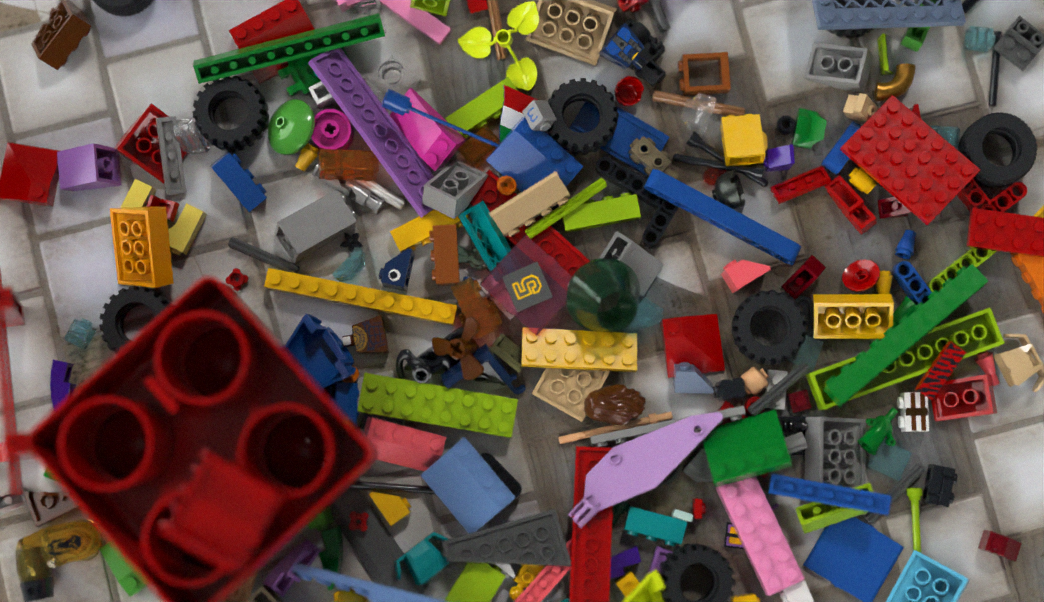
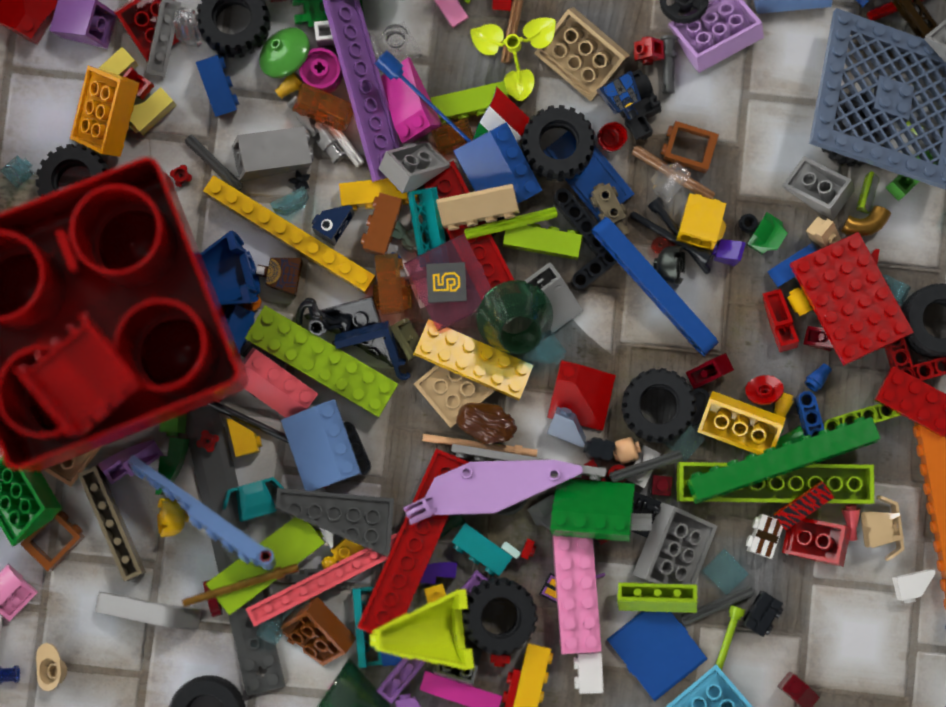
camera: 15 degrees right, 0 degrees up
(462, 348) = (364, 316): reddish brown piece -> none
(506, 185) = (463, 181): orange tile -> none
(539, 115) = (518, 127): light grey brick -> none
(742, 273) = (653, 346): coral slope -> none
(800, 184) = (740, 284): red tile -> none
(830, 494) = (654, 581): blue plate -> none
(880, 428) = (721, 543): green piece -> none

